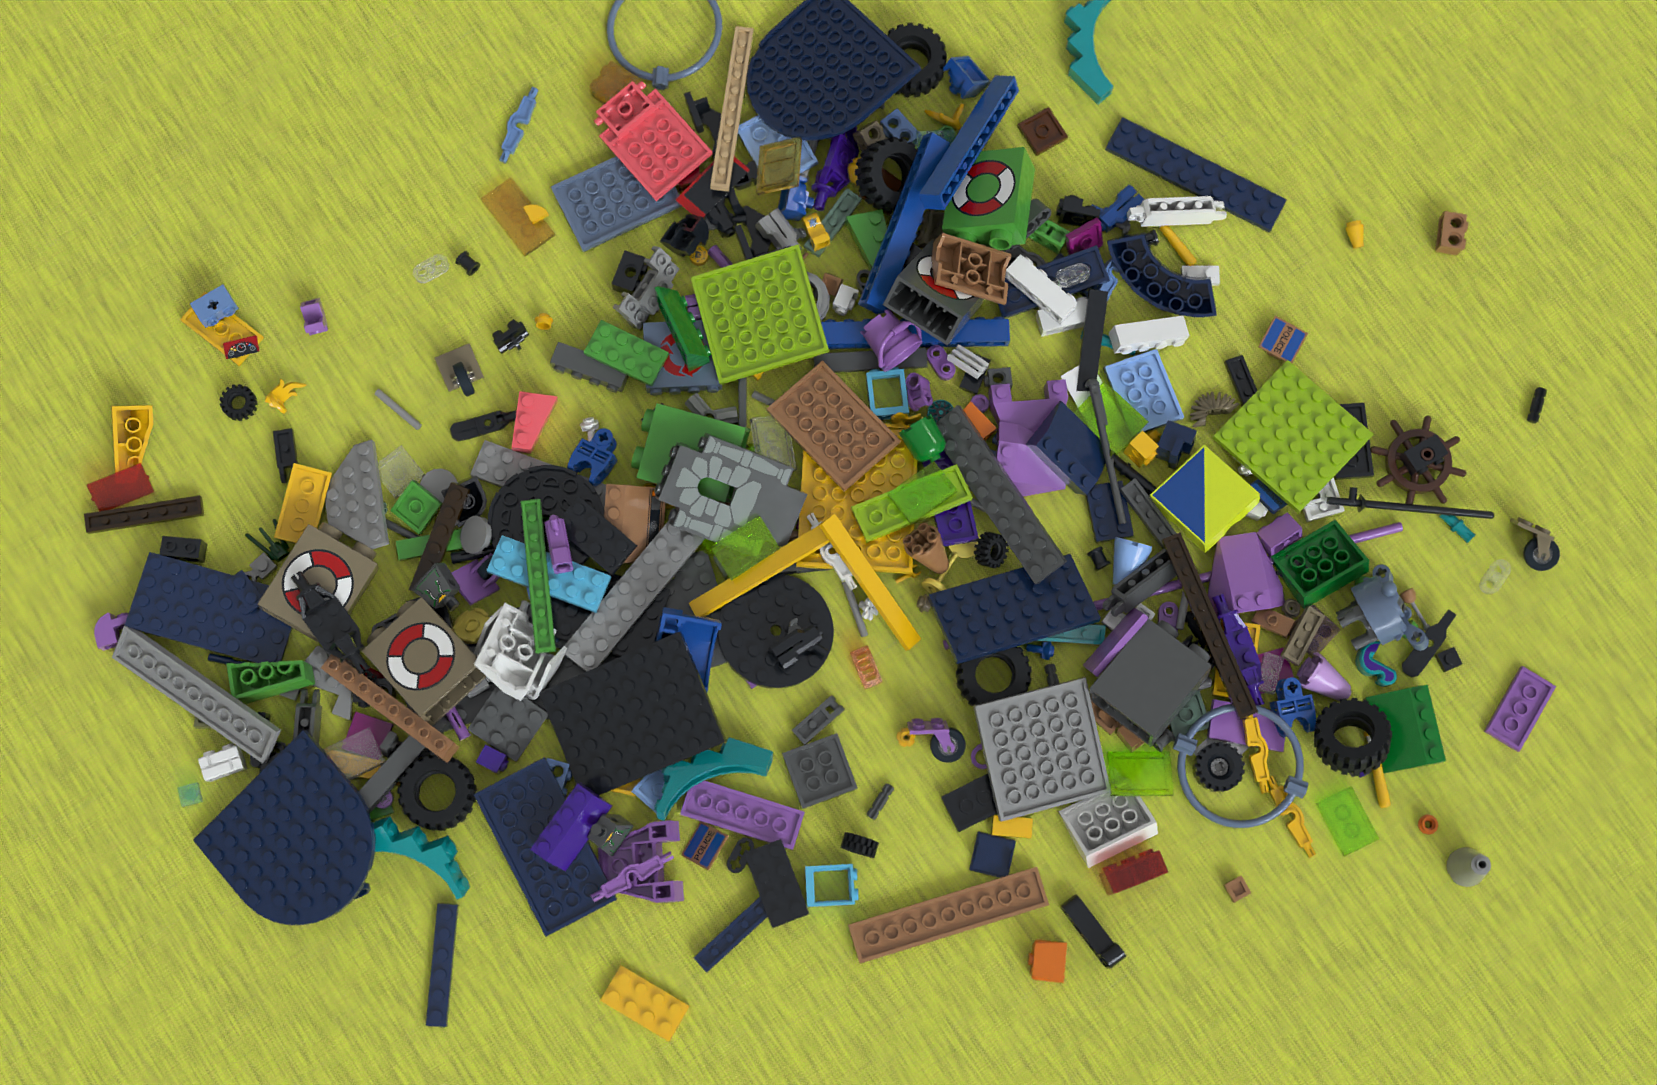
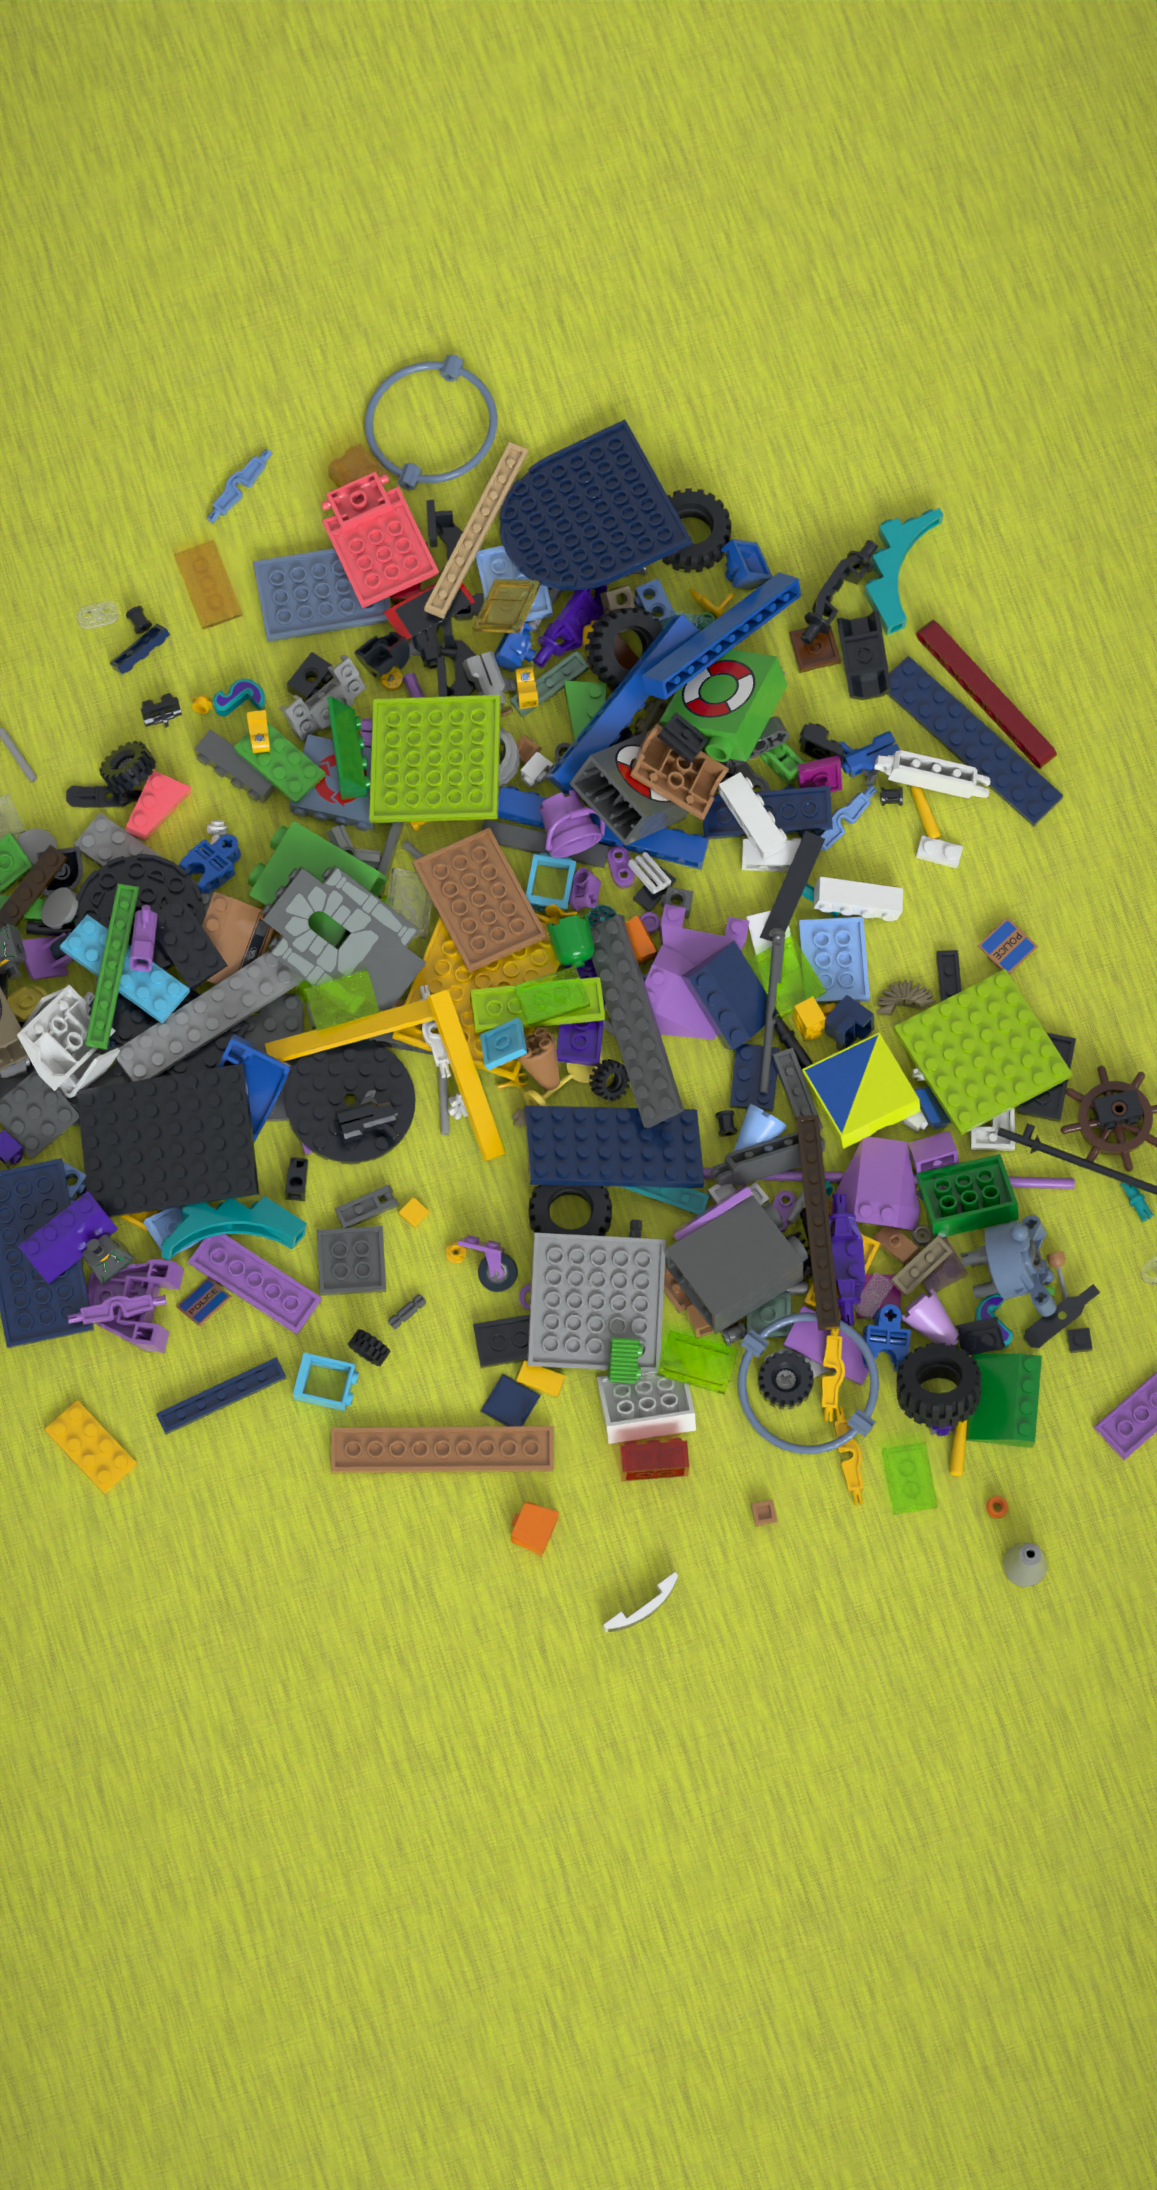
camera: 20 degrees right, 5 degrees down
(459, 369) = (96, 730): dark tan plate -> none
(476, 288) = (140, 649): none -> dark blue plate
(497, 394) = (127, 767): none -> black bush
(535, 213) = (228, 585): yellow tile -> none
(572, 303) = (239, 693): none -> teal animal
(601, 332) = (258, 731): none -> yellow leg
(736, 852) = (235, 1320): black beam -> none
(751, 713) = (296, 1179): none -> black leg
(776, 883) = (268, 1362): black plate -> none
(858, 652) = (433, 1148): clear orange slope -> none
(859, 712) = (413, 1212): none -> yellow tile
(895, 547) = (503, 1043): none -> medium azure plate
(968, 238) = (682, 738): none -> black plate
(1040, 94) = (844, 571): none -> black plate
(1046, 649) = (636, 1204): blue plate -> none
(1072, 275) = (790, 810): clear plate -> none
(1081, 792) = (624, 1360): none -> bright green brick
(1088, 127) = (864, 657): none -> black piece
(1092, 932) = (591, 1511): black beam -> none
(1157, 282) = (887, 845): dark blue brick -> none
(1175, 980) = (620, 1622): none -> white slope
(1196, 131) = (986, 694): none -> dark red beam
(1355, 233) = (1128, 853): yellow cone -> none
(1370, 682) = (980, 1336): none -> black plate

